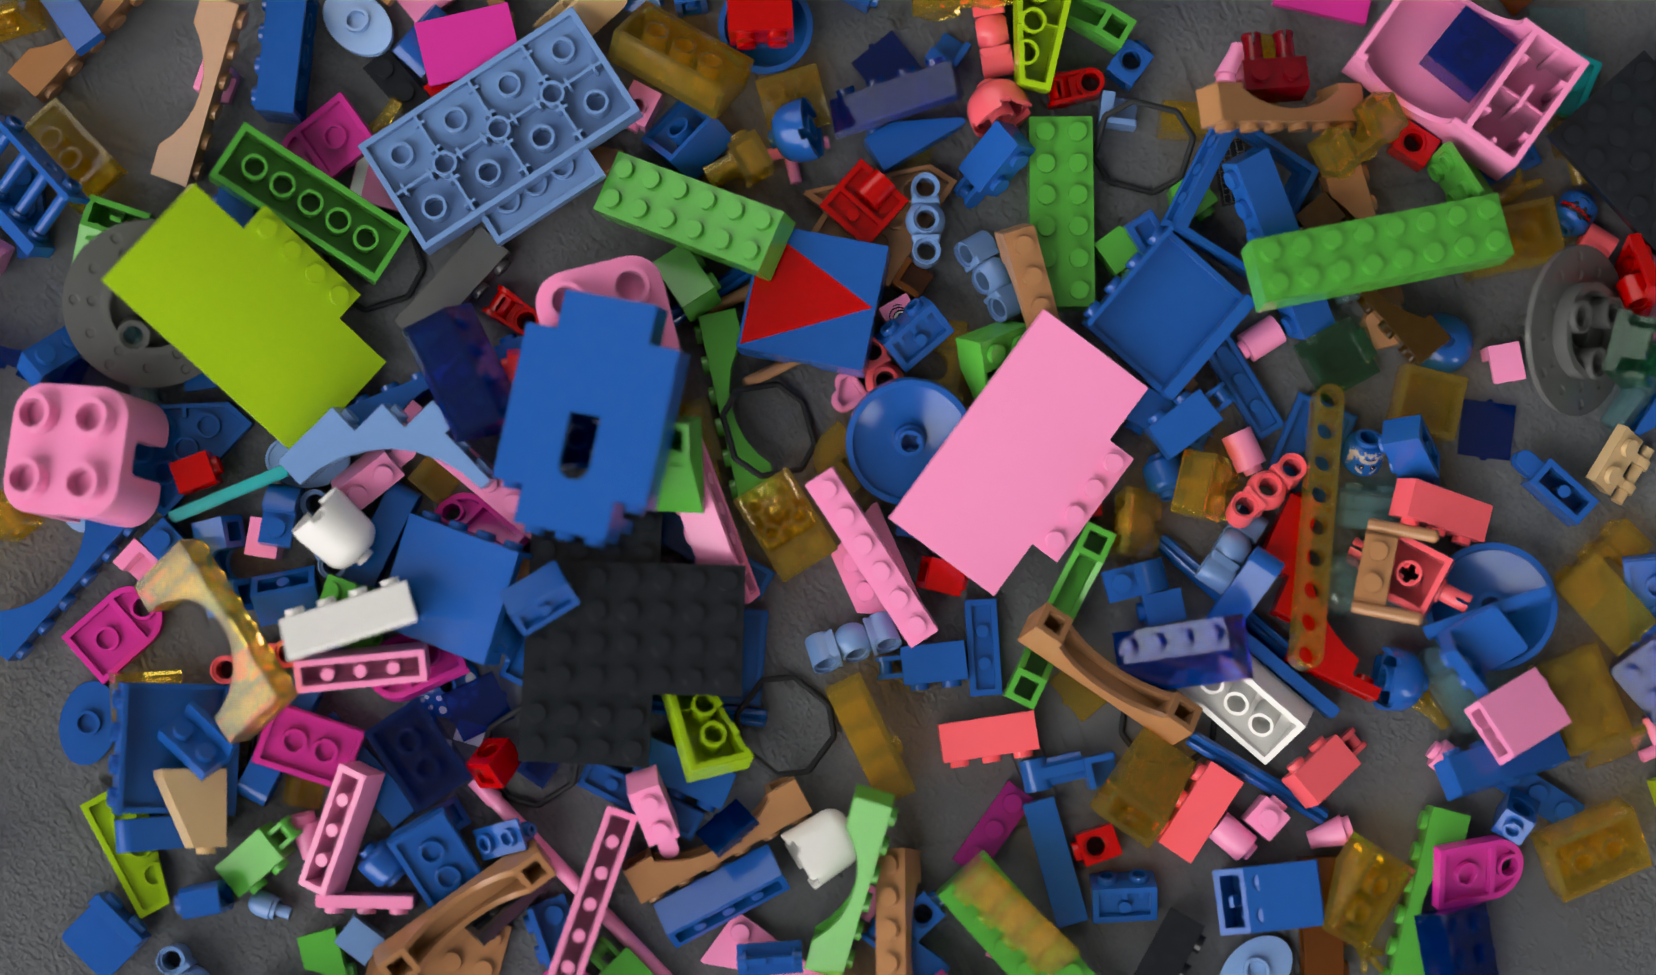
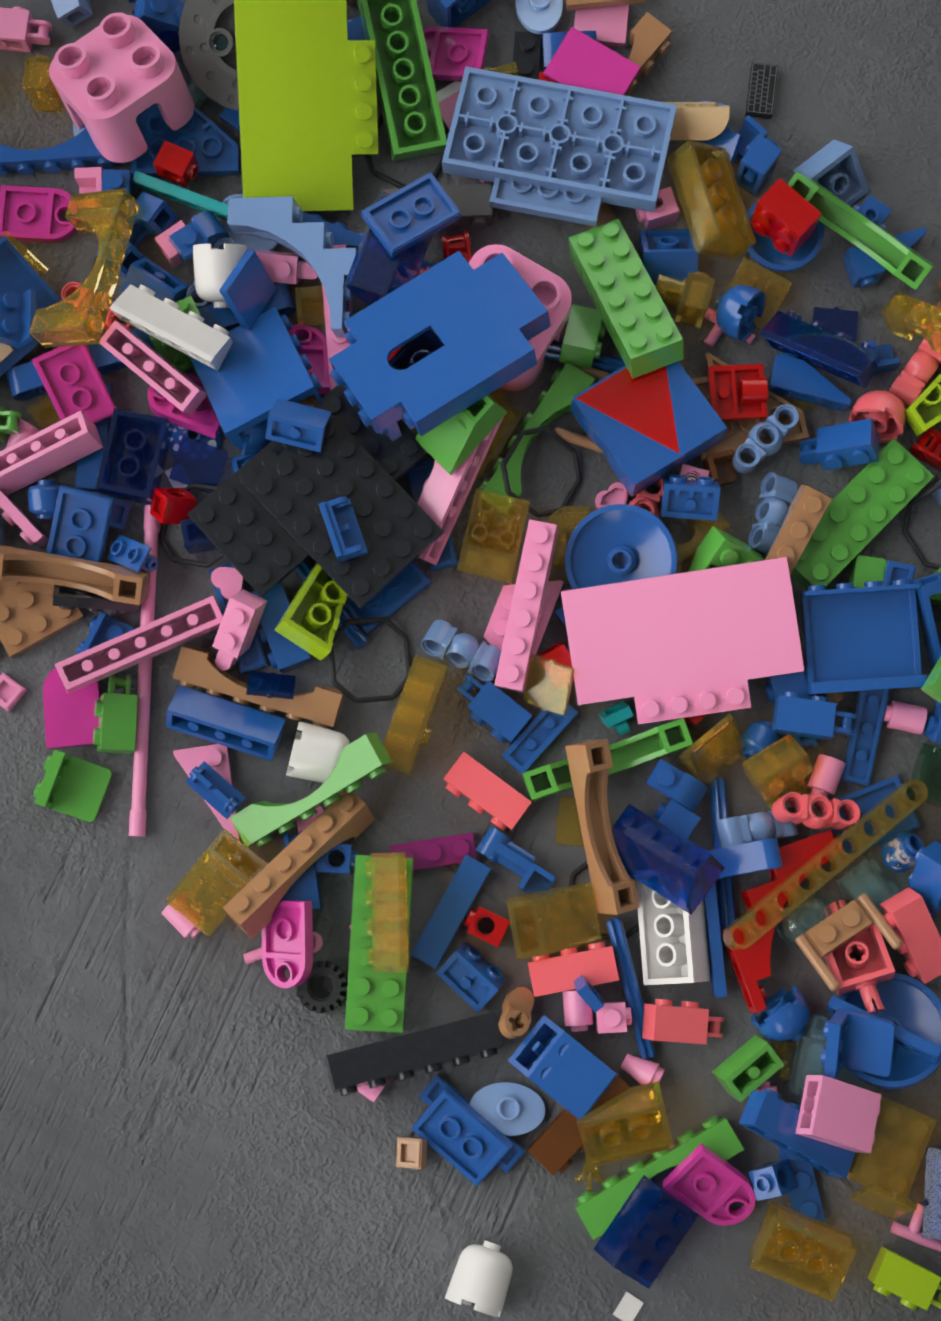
camera: 50 degrees right, 5 degrees down
(375, 523) = (248, 289): none -> blue tile
(449, 325) = (411, 214): none -> blue tile
(605, 779) = (227, 580): none -> bright pink tile
(665, 647) = (343, 528): none -> blue hinge
(953, 602) = (548, 685): none -> clear yellow piece
(1030, 571) = (616, 717): none -> teal tile
(1188, 890) = (516, 1012): none -> medium nougat piece
(1232, 818) = (588, 993): none -> blue tile
(1411, 748) = (748, 1068): none -> bright green brick

